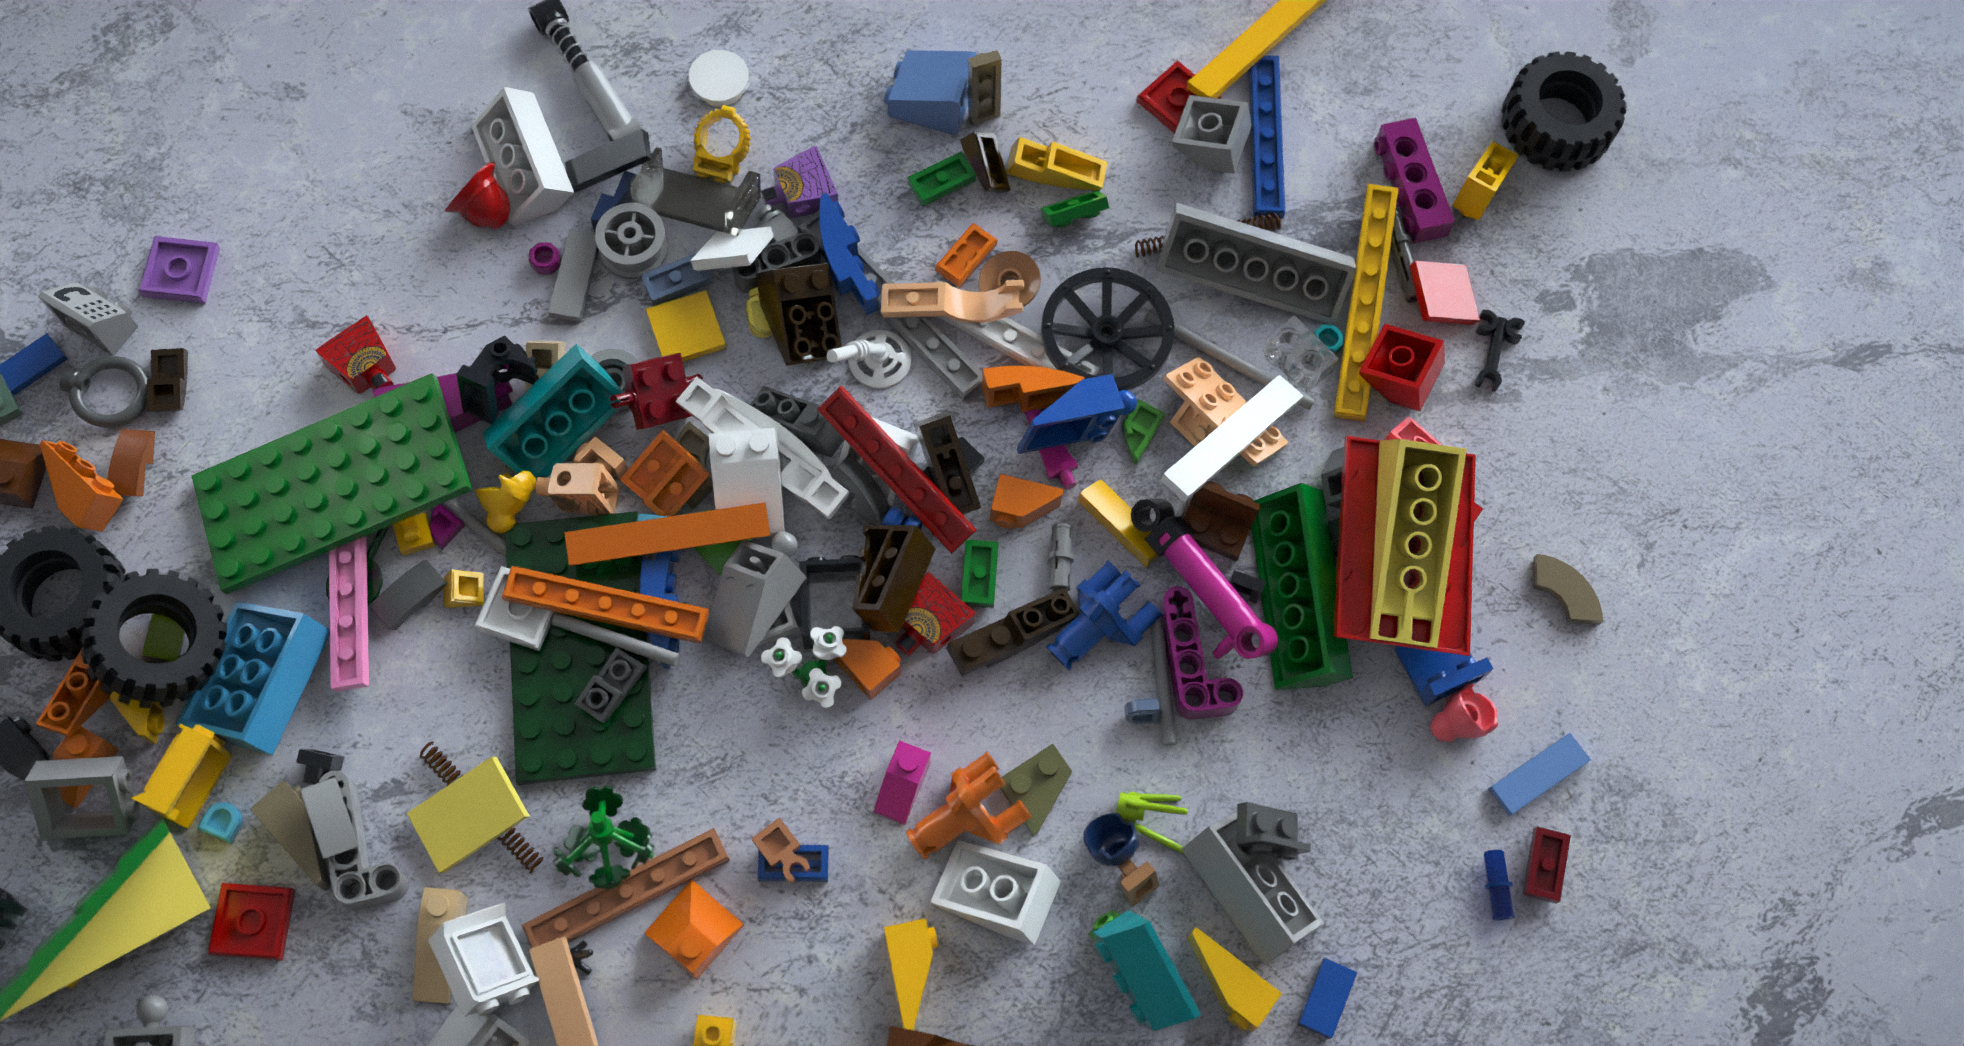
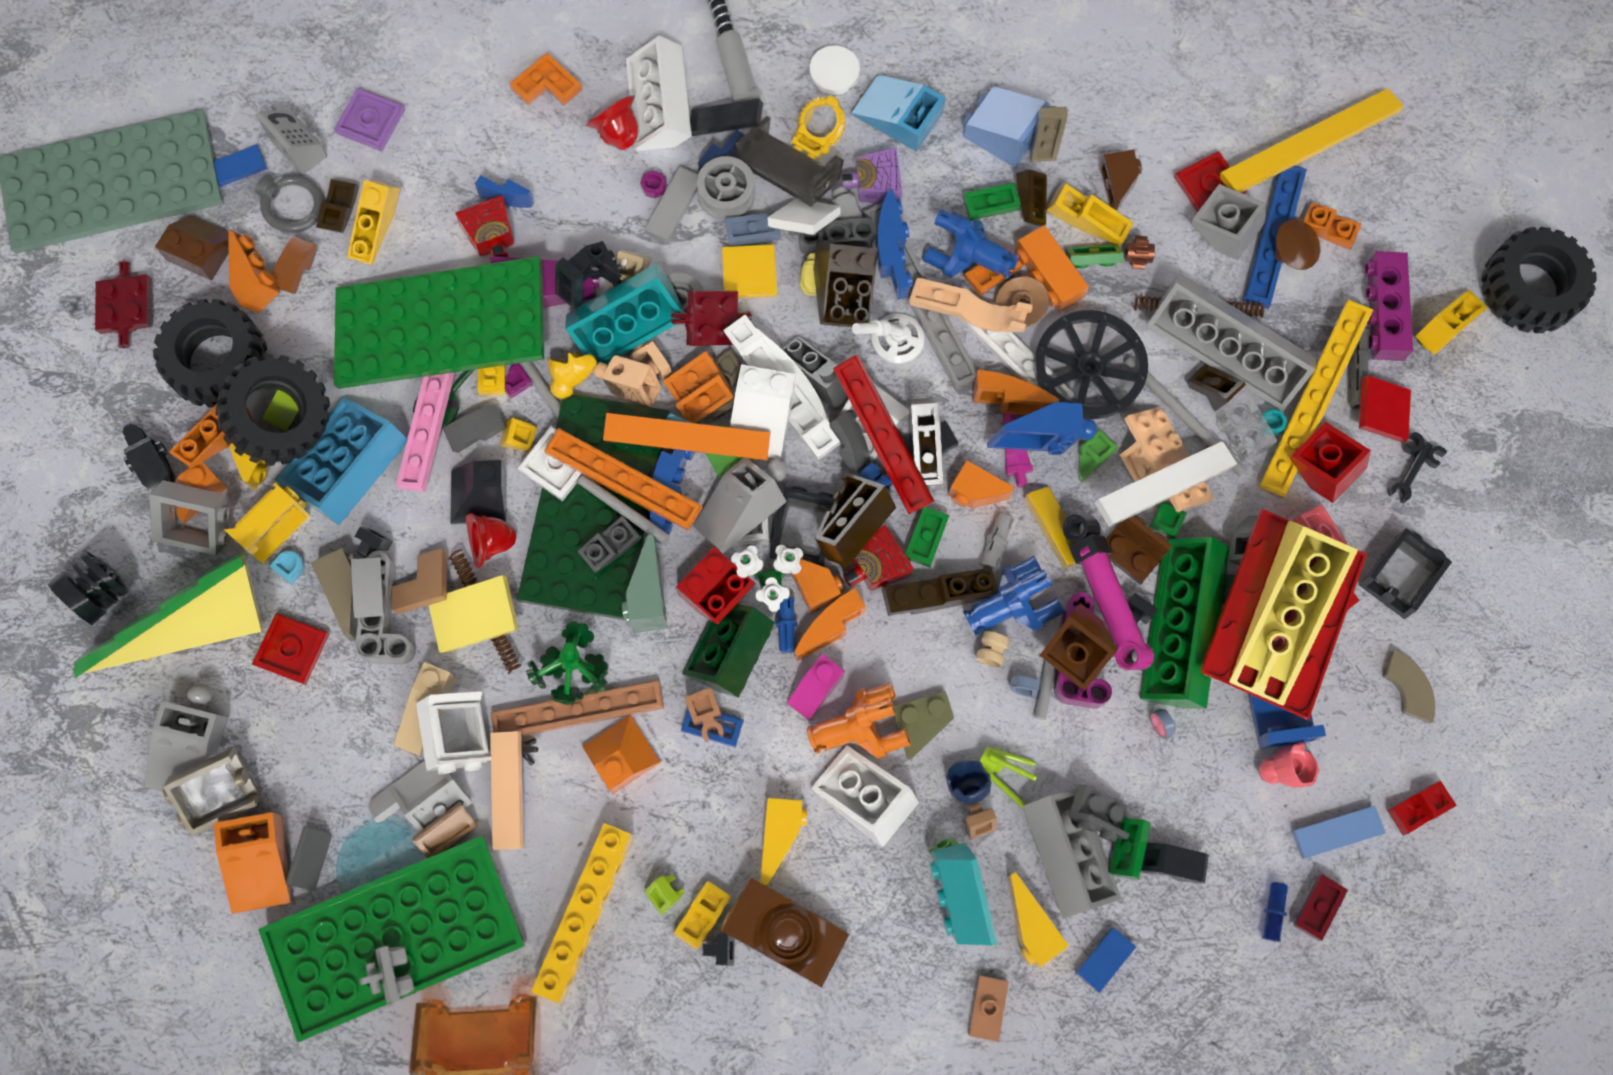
camera: 20 degrees right, 5 degrees up
(215, 385) = (372, 220): none -> yellow slope
(380, 166) = (543, 76): none -> orange plate
(380, 311) = (513, 193): none -> blue slope
(404, 796) = (428, 587): none -> medium nougat tile
(434, 669) = (479, 490): none -> black slope
(460, 718) = (488, 537): none -> red piece
(672, 738) = (645, 593): none -> sand green slope
(749, 699) = (714, 586): none -> red slope
(786, 766) = (729, 650): none -> dark green slope
(808, 102) = (900, 109): none -> dark azure slope
(847, 721) = (786, 626): none -> blue axle
(898, 704) = (830, 624): none -> orange slope
(933, 236) = (969, 248): none -> blue wheel
(1030, 232) = (1052, 268): none -> orange brick
(1076, 113) = (1119, 175): none -> reddish brown slope
(1093, 680) = (992, 649): none -> tan wheel
(1124, 192) = (1139, 252): none -> copper gear
(1193, 648) = (1080, 647): none -> reddish brown slope
(1245, 479) = (1167, 520): none -> green tile
(1252, 315) = (1216, 385): none -> dark brown slope
(1294, 140) = (1297, 245): none -> reddish brown dish
(1309, 708) = (1162, 723): none -> sand blue tile
(1317, 867) = (1129, 853): none -> green plate
(1324, 112) = (1332, 227): none -> orange slope
(1368, 861) = (1176, 862): none -> black slope
(1522, 466) = (1406, 573): none -> window
(1620, 720) = (1421, 808): none -> red slope

